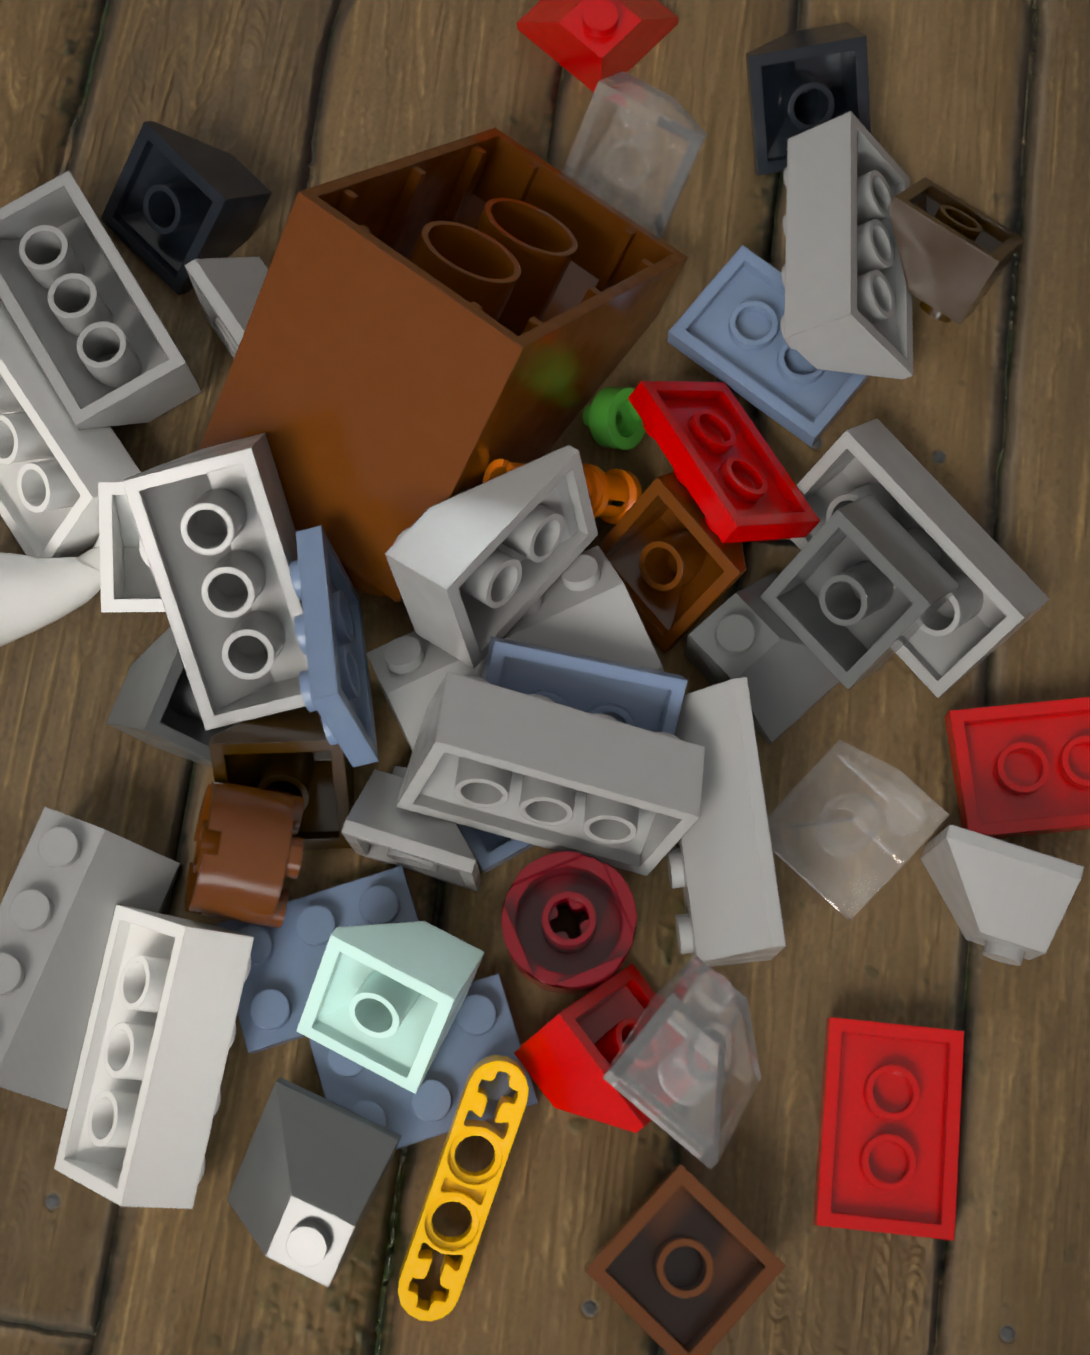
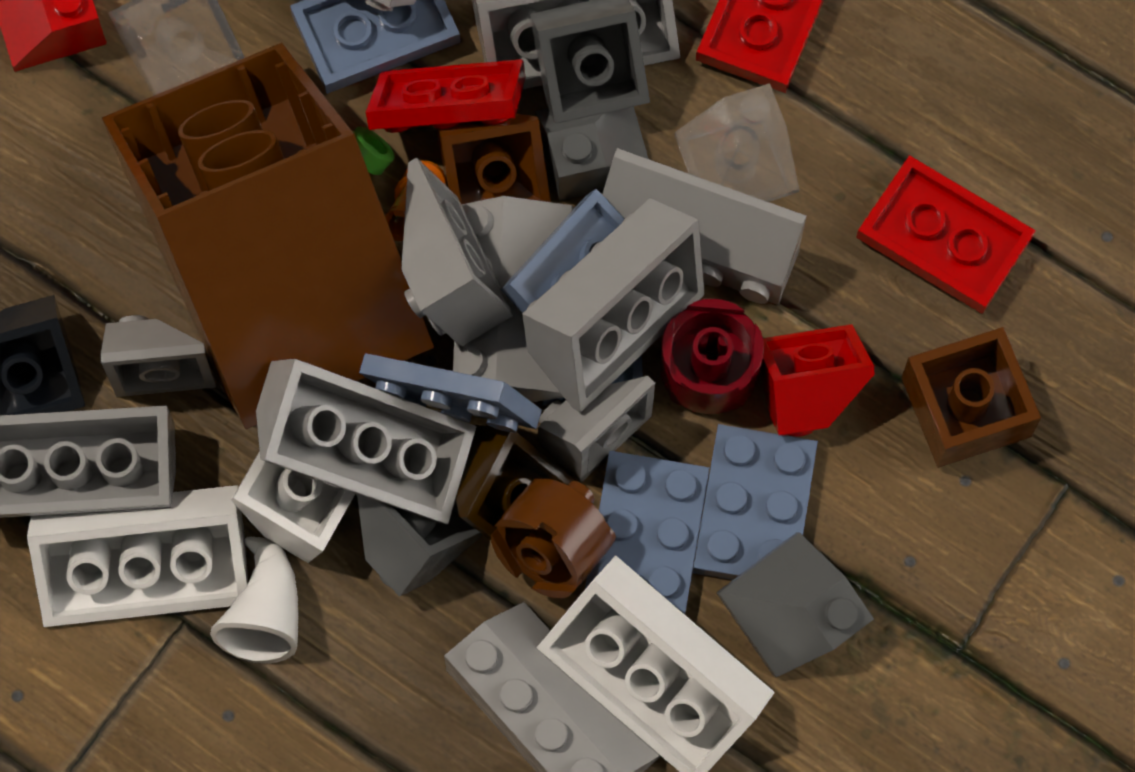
camera: 65 degrees left, 5 degrees down
(389, 996) = (705, 487): light aqua slope -> none
(469, 1188) = (856, 505): yellow beam -> none
(691, 1060) = (838, 322): clear slope -> none
(1001, 892) = (834, 83): light grey slope -> none

